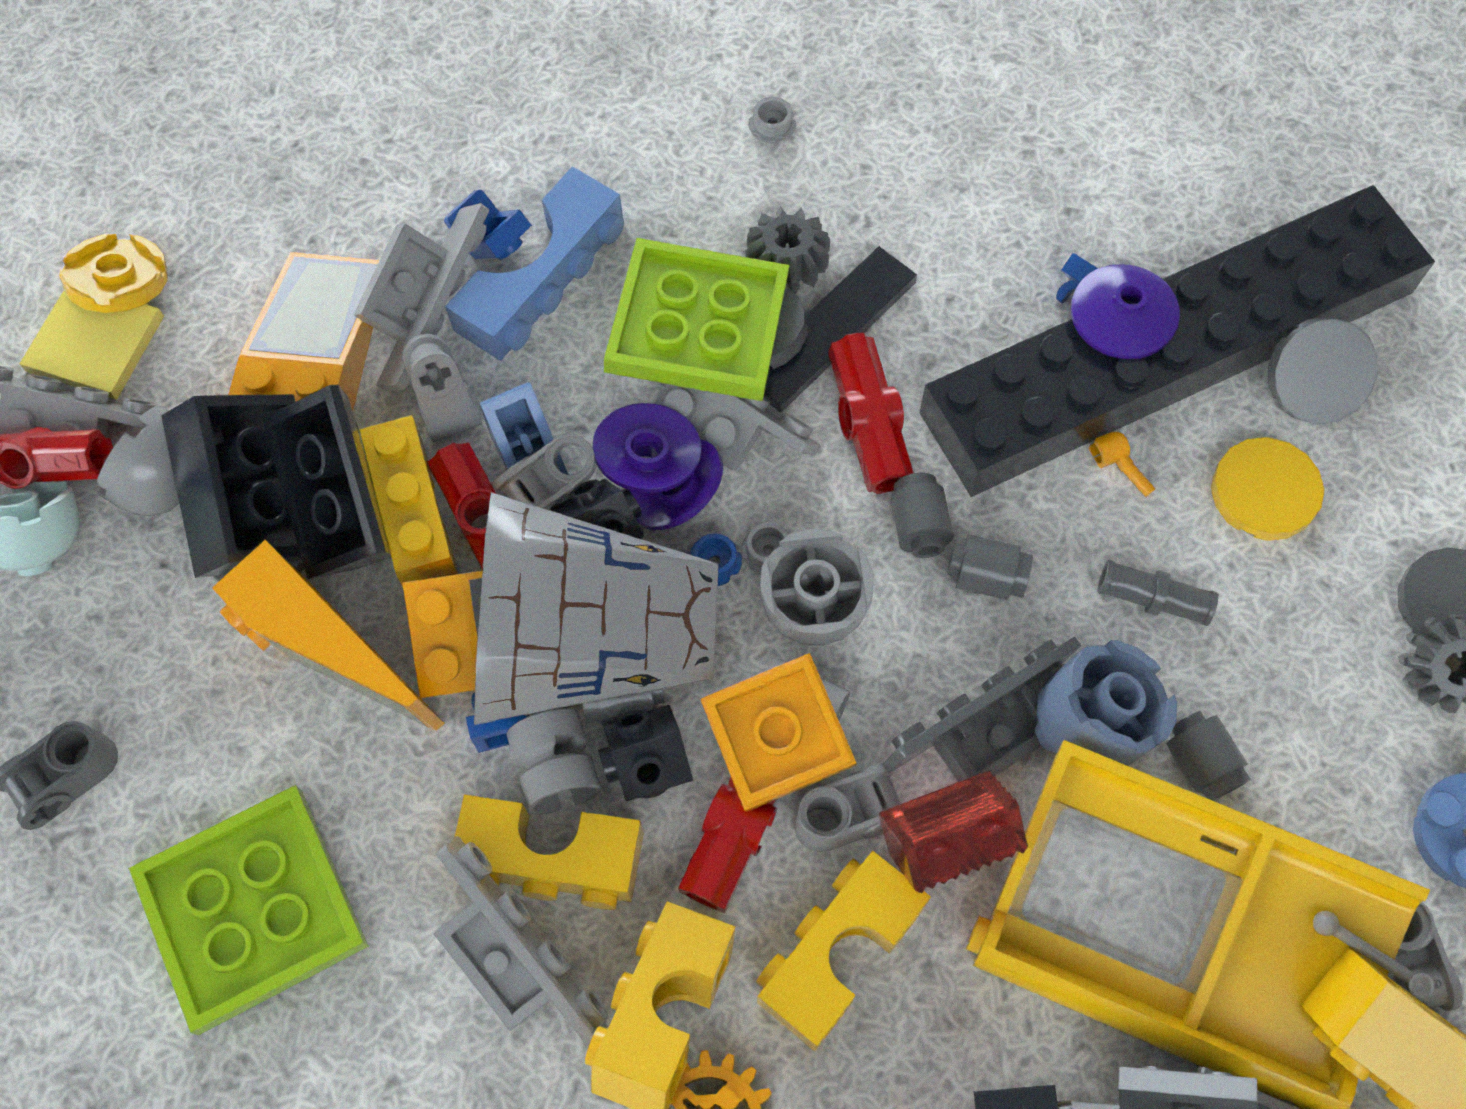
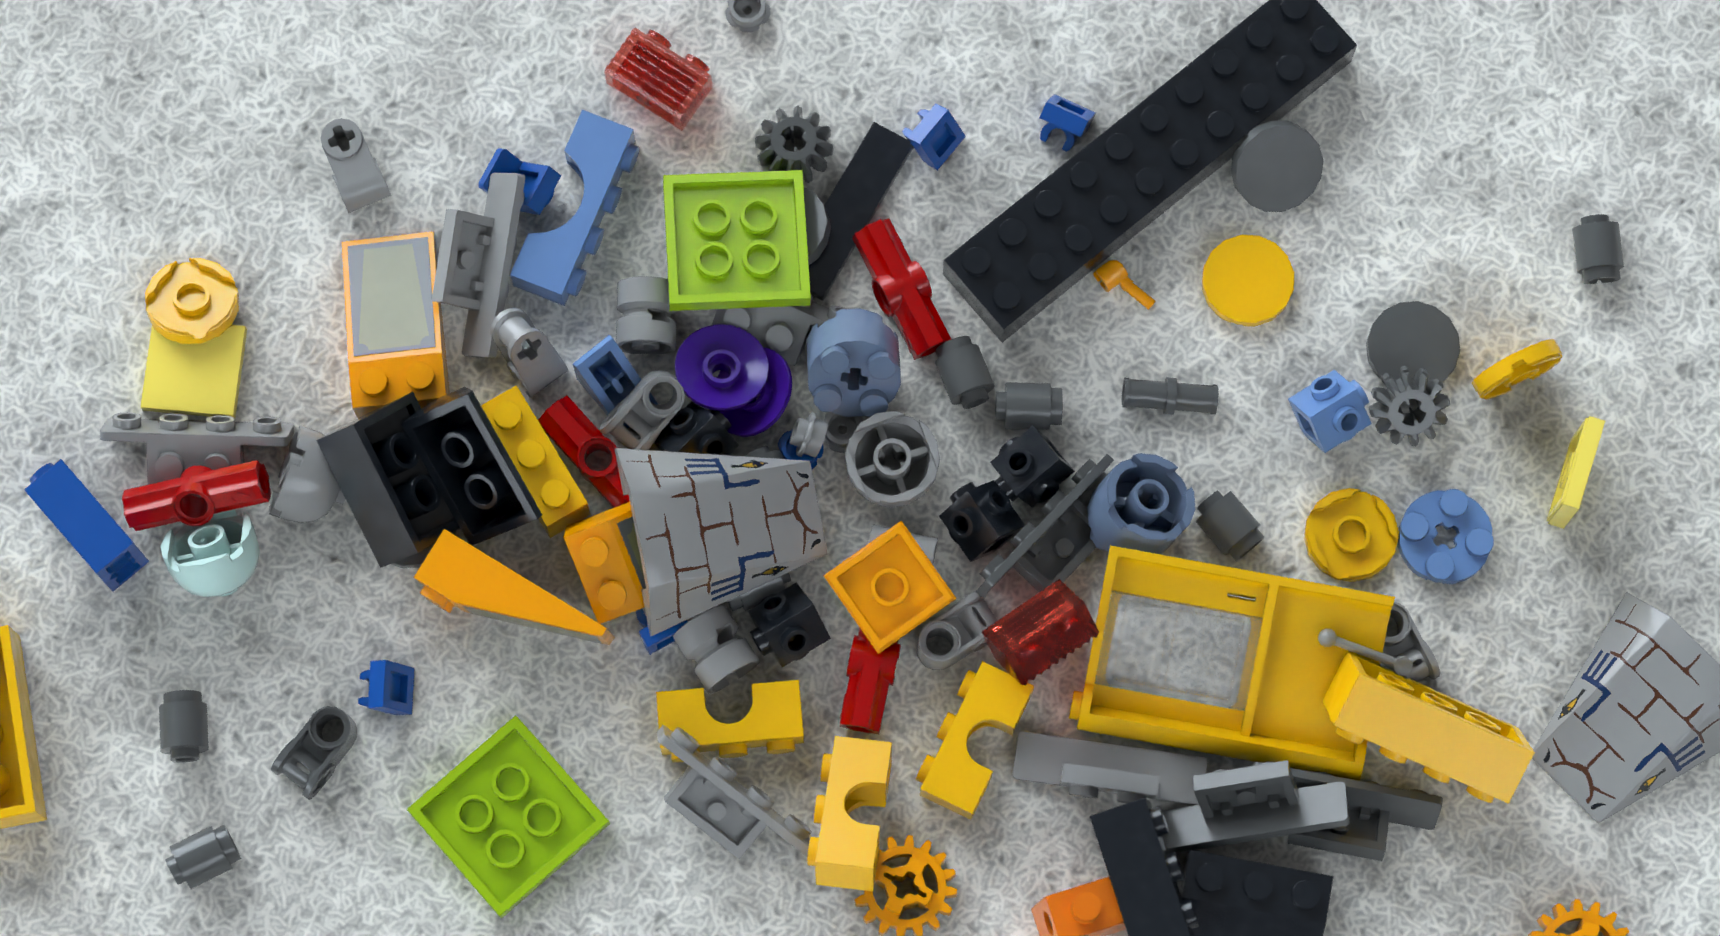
camera: 15 degrees left, 10 degrees up
(165, 719) = (389, 687): none -> blue tile
(323, 178) = (355, 169): none -> light grey piece
(578, 388) = (646, 316): none -> light grey wheel
(663, 161) = (659, 77): none -> clear red brick
(725, 539) = (808, 435): none -> light grey plate
(789, 499) = (853, 364): none -> sand blue brick
(906, 681) = (981, 519): none -> black brick
(942, 270) = (935, 135): none -> blue tile
(978, 634) = (1030, 468): none -> black brick
(1000, 1025) = (1107, 768): none -> light grey bracket
(1121, 327) = (1097, 177): dark purple dish -> none
(1345, 816) = (1349, 551): none -> yellow tile
(1353, 648) = (1331, 410): none -> medium blue brick

